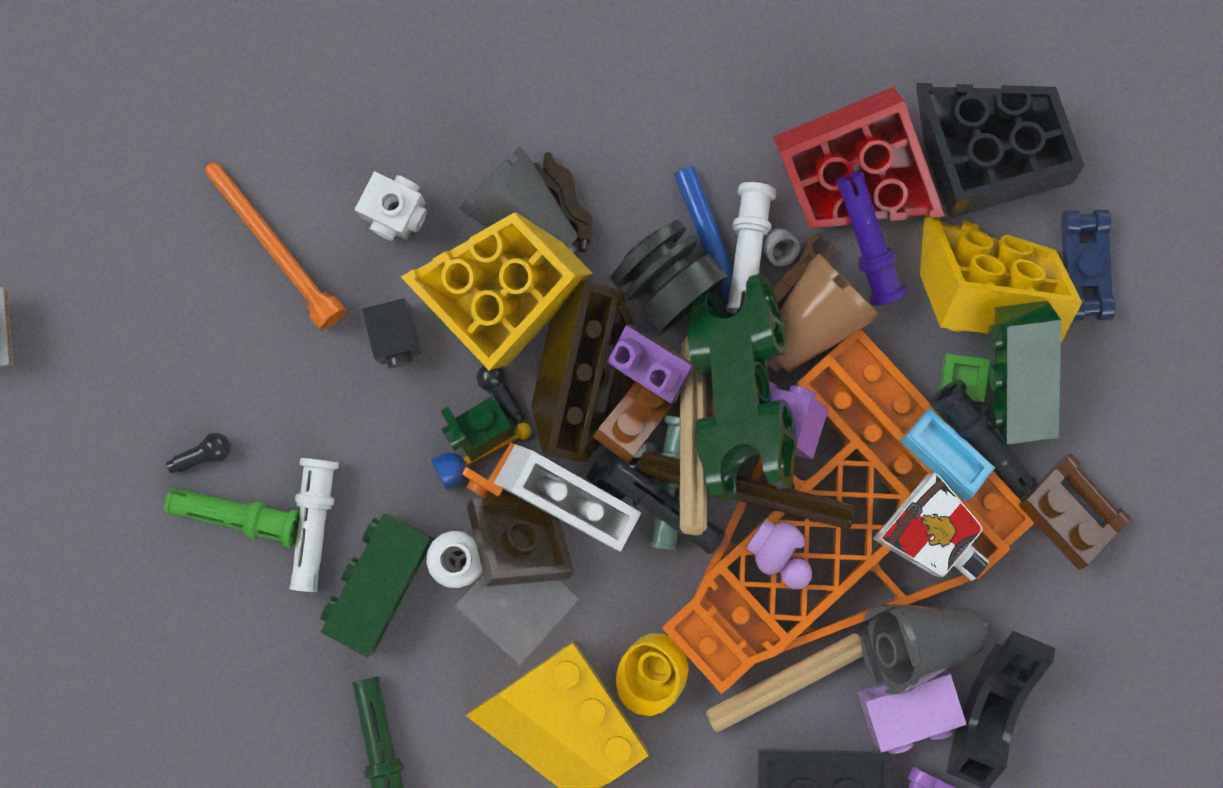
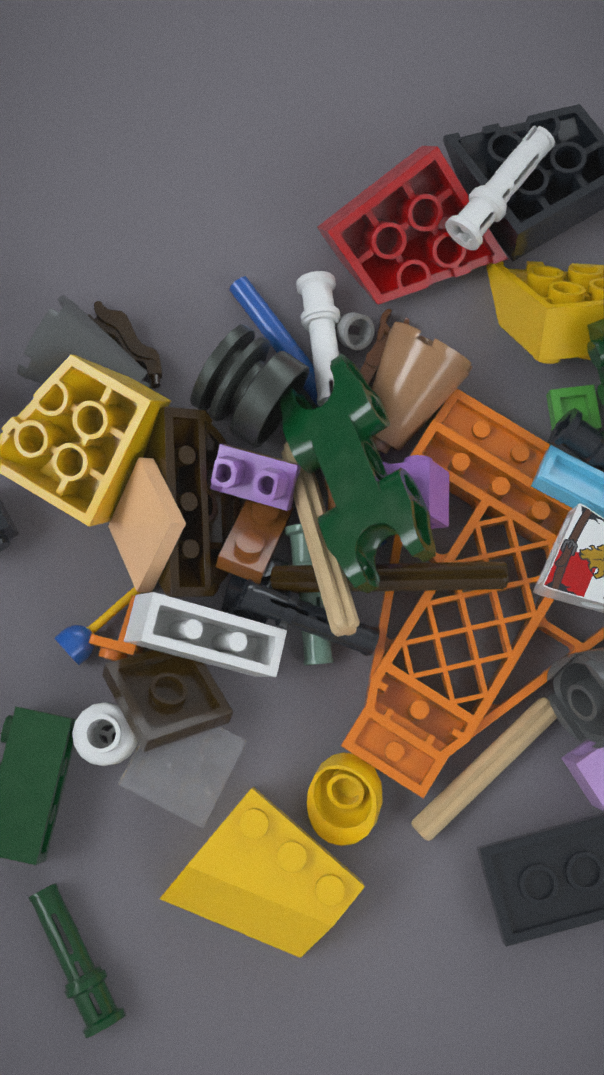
camera: 20 degrees left, 5 degrees down
(477, 428) = (94, 593): dark green bracket -> none
(495, 382) = (100, 541): black piece -> none
(540, 382) = (146, 525): none -> light nougat tile
(773, 550) = (435, 628): lavender animal -> none
(876, 258) = (453, 315): dark purple pin -> none
(938, 164) = (489, 201): none -> white pin

